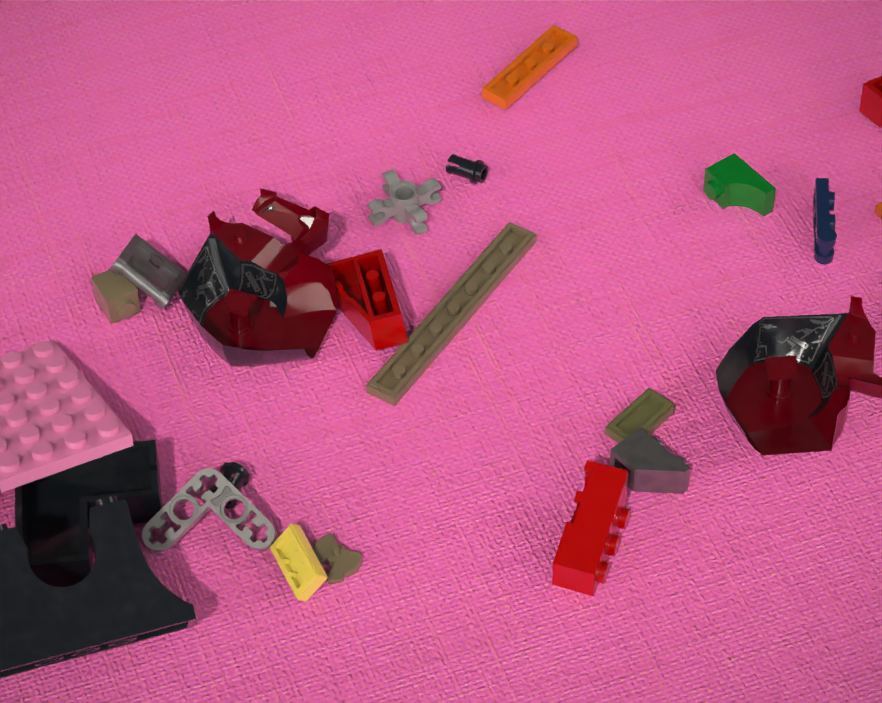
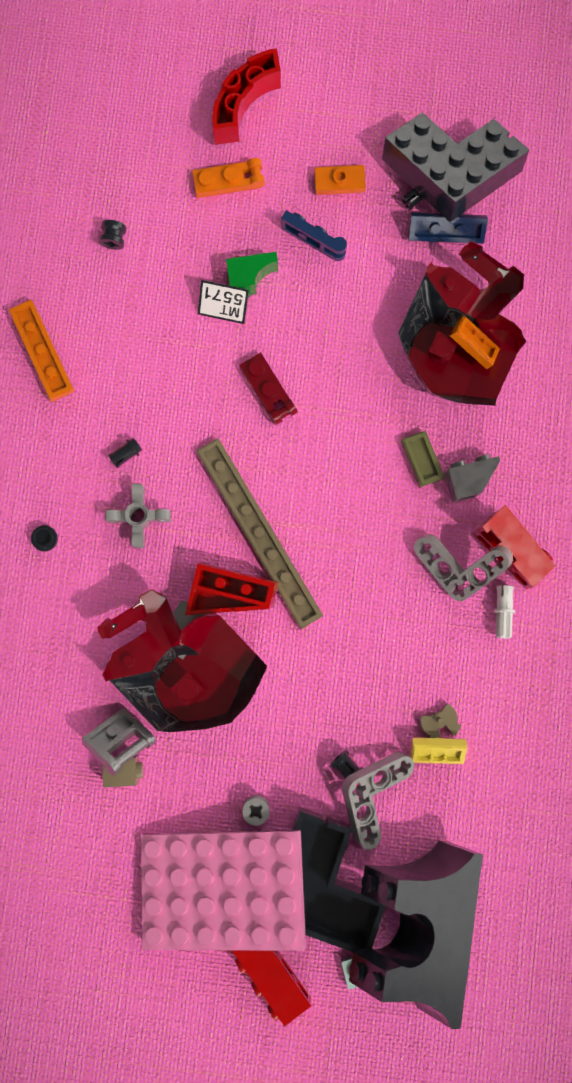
camera: 65 degrees left, 35 degrees up
(137, 421) = (259, 806): none -> light grey wheel
(332, 144) = (44, 538): none -> black plate
(508, 562) = (504, 611): none -> white axle
(524, 494) = (457, 575): none -> light grey beam
(622, 254) = (267, 388): none -> dark red plate
(688, 176) = (222, 301): none -> white sticker
(693, 68) = (112, 234): none -> wheel
(809, 396) = (475, 342): none -> orange plate
(831, 134) = (228, 178): none -> orange plate

